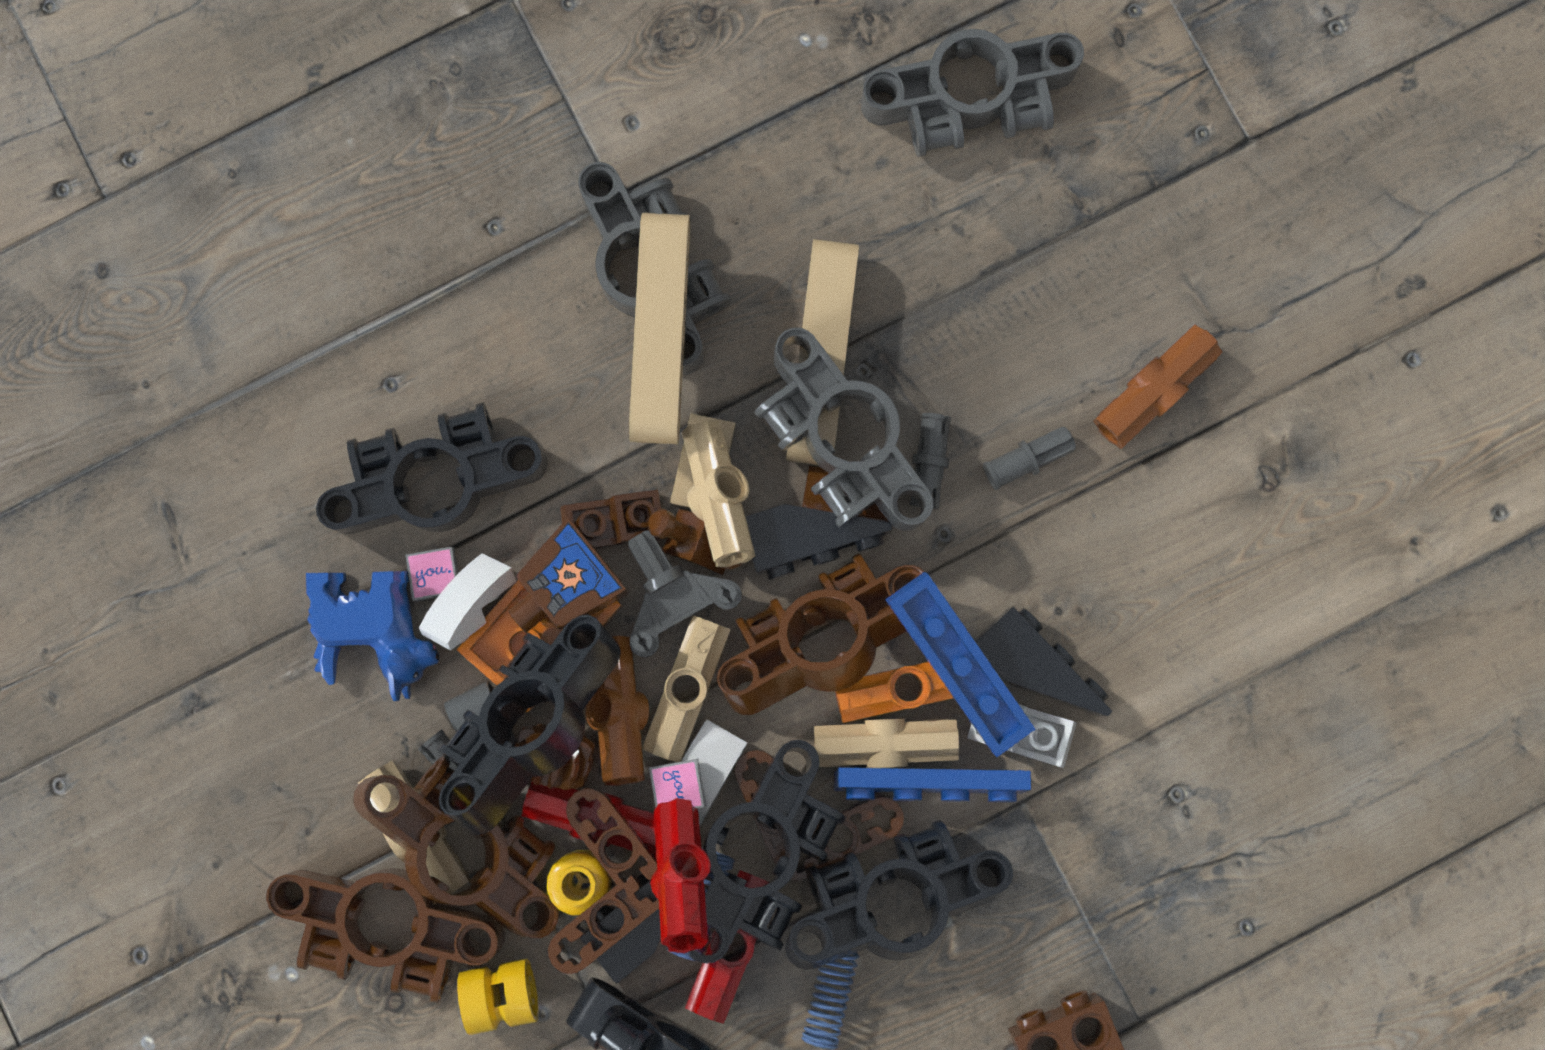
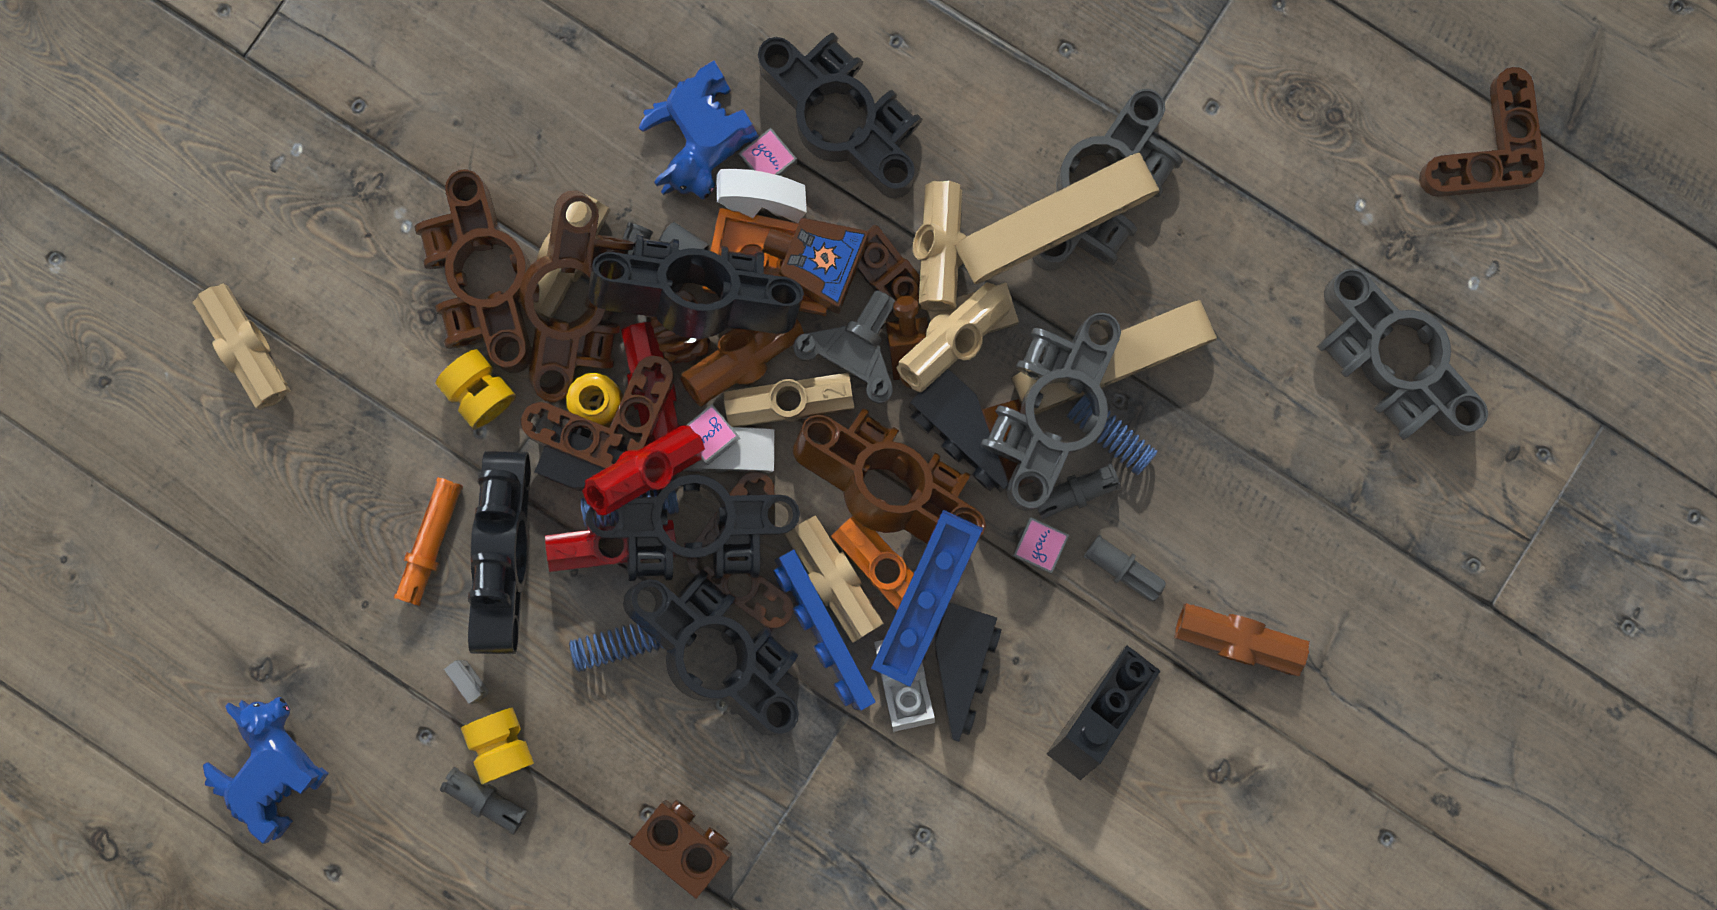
camera: 60 degrees right, 0 degrees up
(617, 459) = (936, 244): none -> tan piece
(937, 381) = (1147, 456): none -> medium blue piece
(962, 525) = (1040, 545): none -> bright pink tile
(1158, 557) = (1103, 714): none -> black slope

